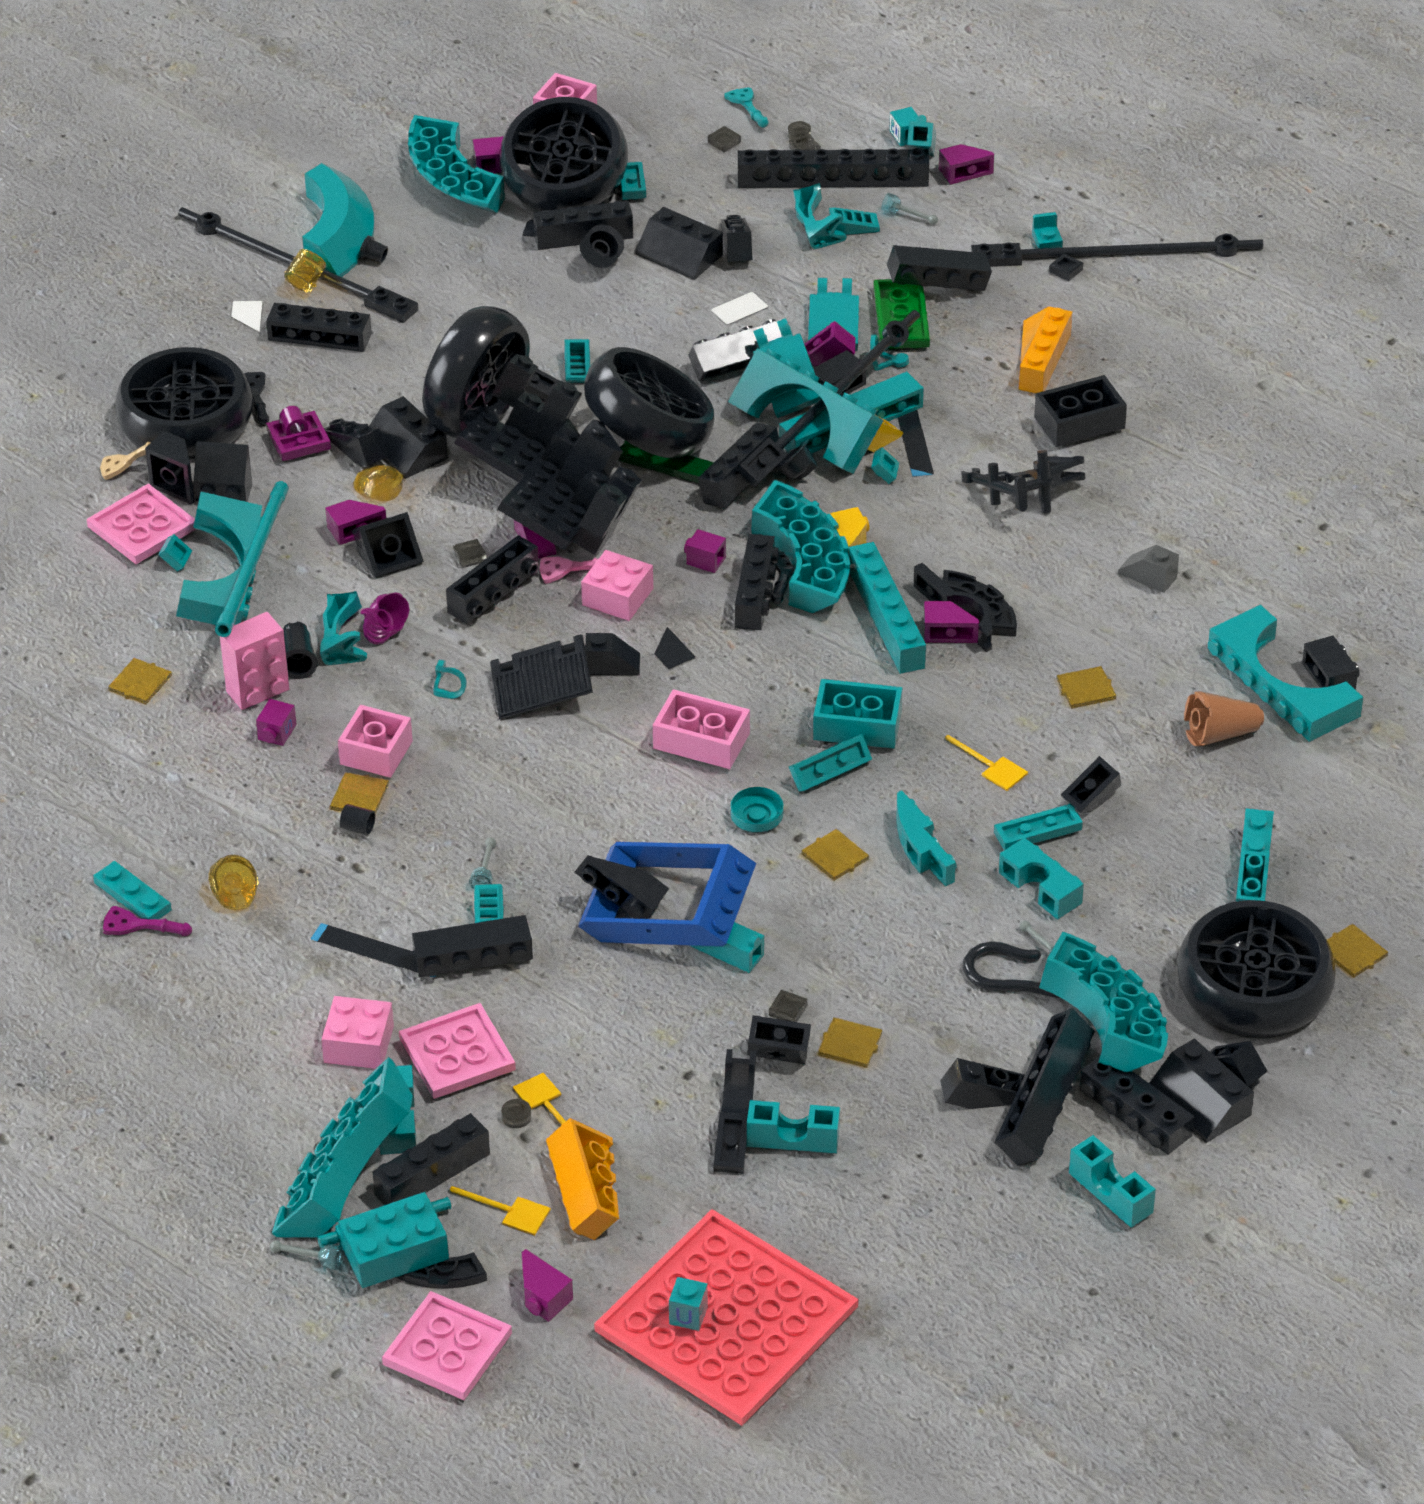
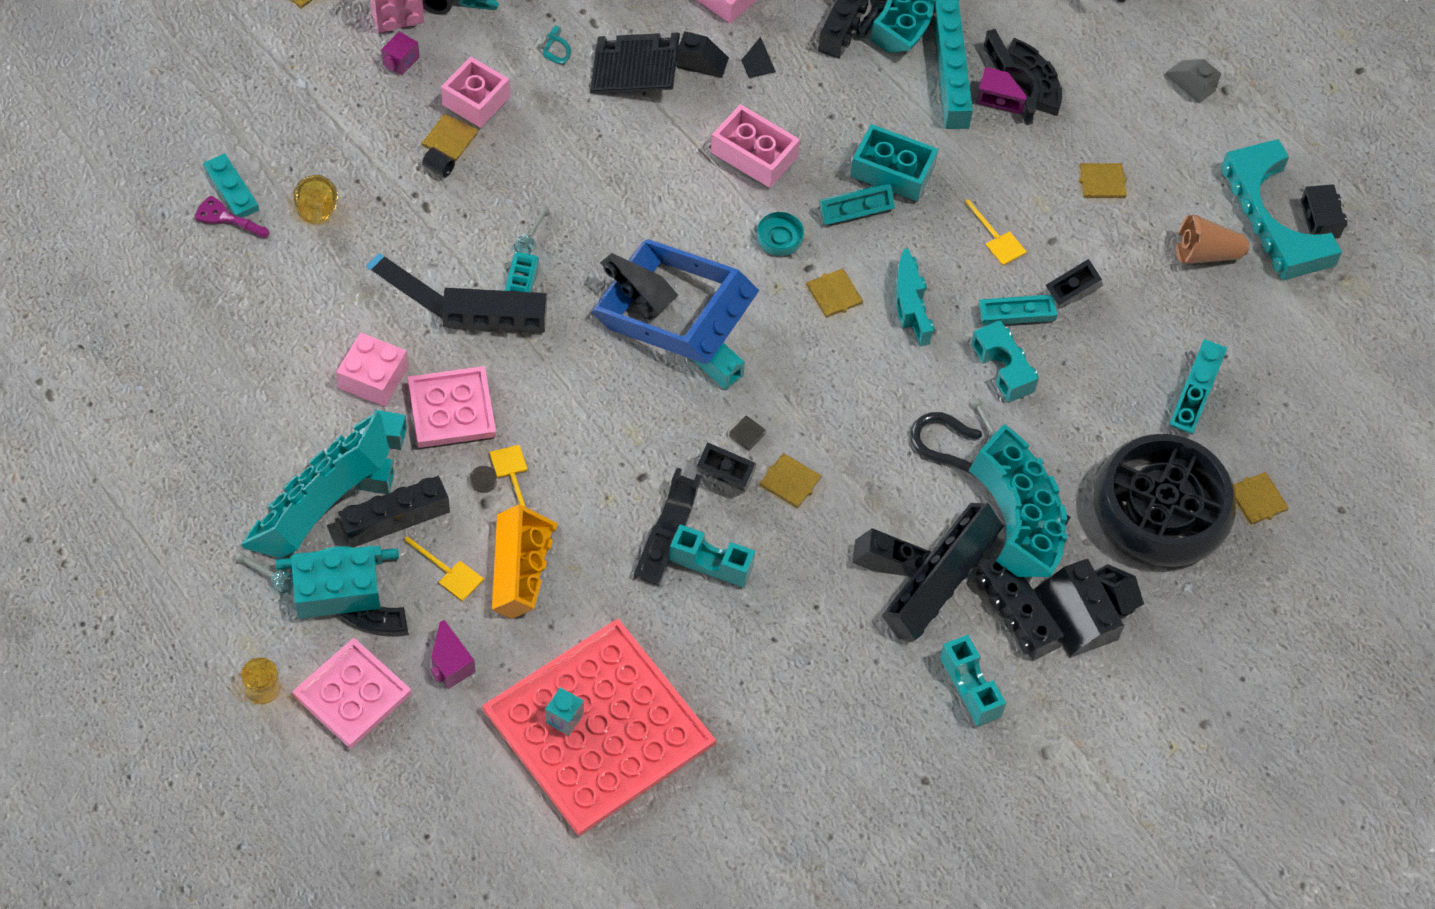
camera: 10 degrees right, 15 degrees up
(343, 1354) = (261, 680): none -> clear yellow piece

